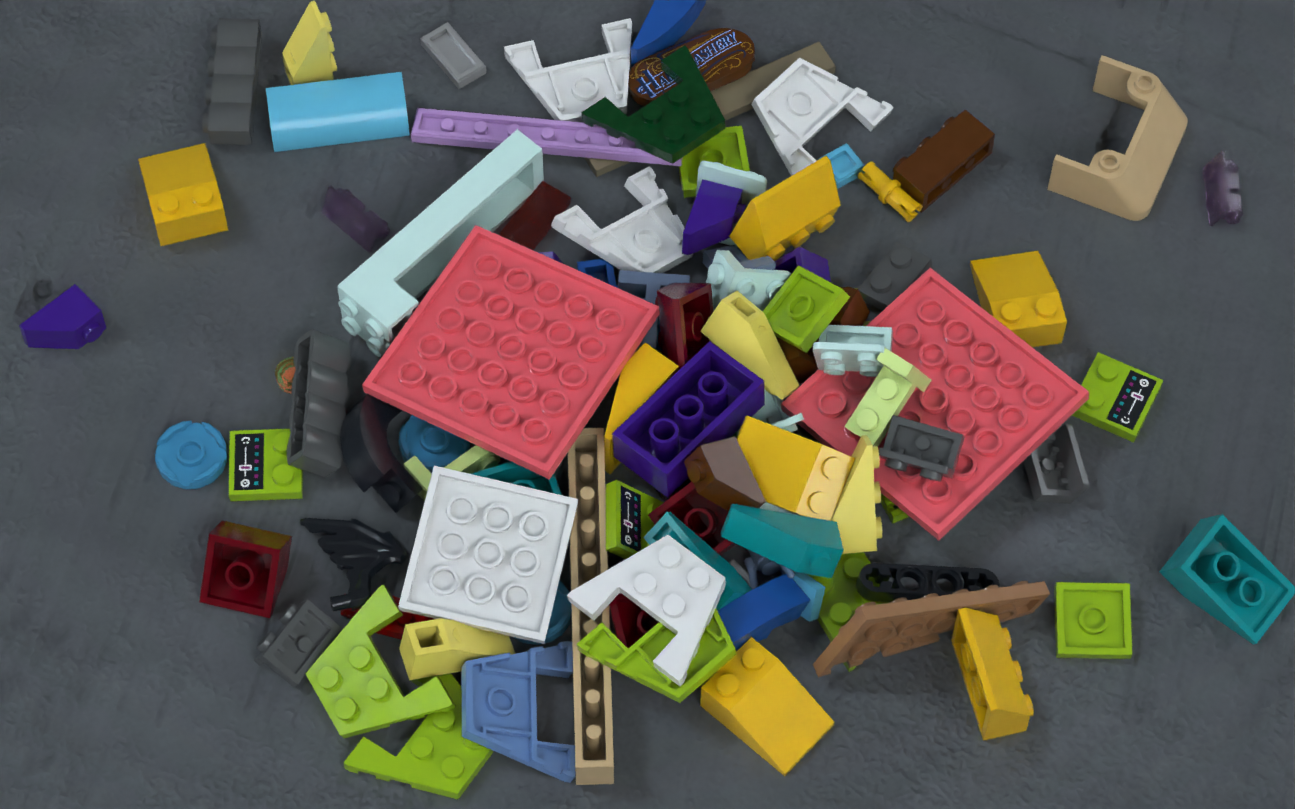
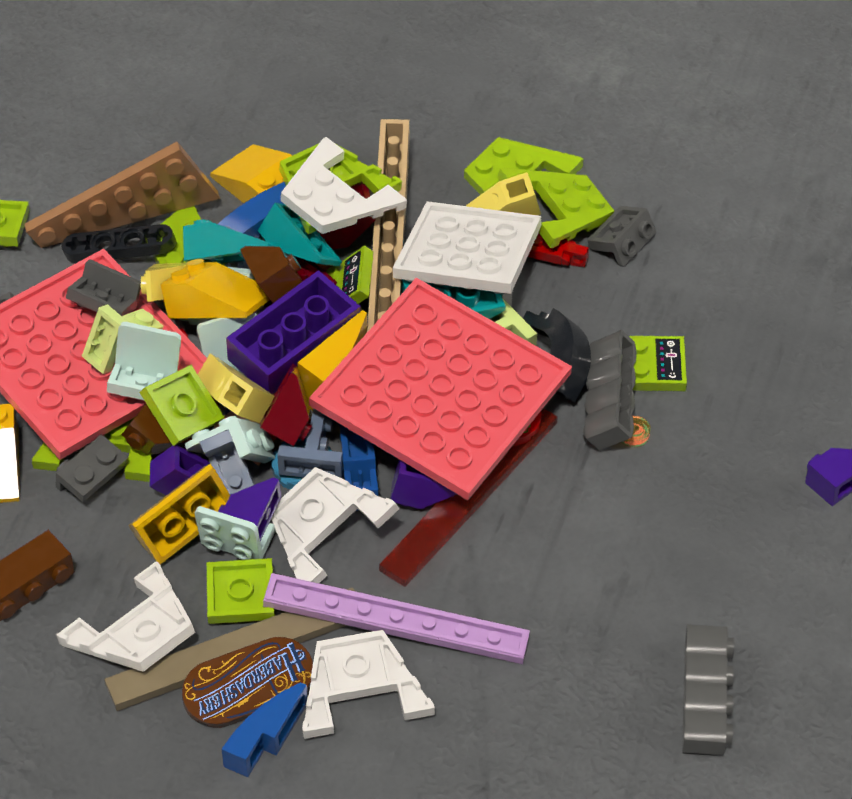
camera: 175 degrees left, 10 degrees down
(183, 194) = (748, 585): yellow slope -> none
(191, 455) = (718, 374): dark azure tile -> none
(244, 568) = (664, 284): dark red slope -> none
(310, 49) = (629, 688): light yellow slope -> none
(337, 111) = (602, 659): medium azure brick -> none
(348, 215) = (591, 564): clear purple hinge -> none
(358, 549) = (573, 291): black animal -> none
(384, 289) = (551, 472): light aqua brick -> none
(453, 55) = (486, 717): light grey tile -> none
(502, 706) = (460, 173): medium blue wing -> none
(672, 122) = (273, 603): dark green wing -> none
(845, 165) = (117, 588): medium azure tile -> none
(889, 191) = (81, 556): yellow pin -> none
(990, 674) = (80, 163): yellow slope -> none

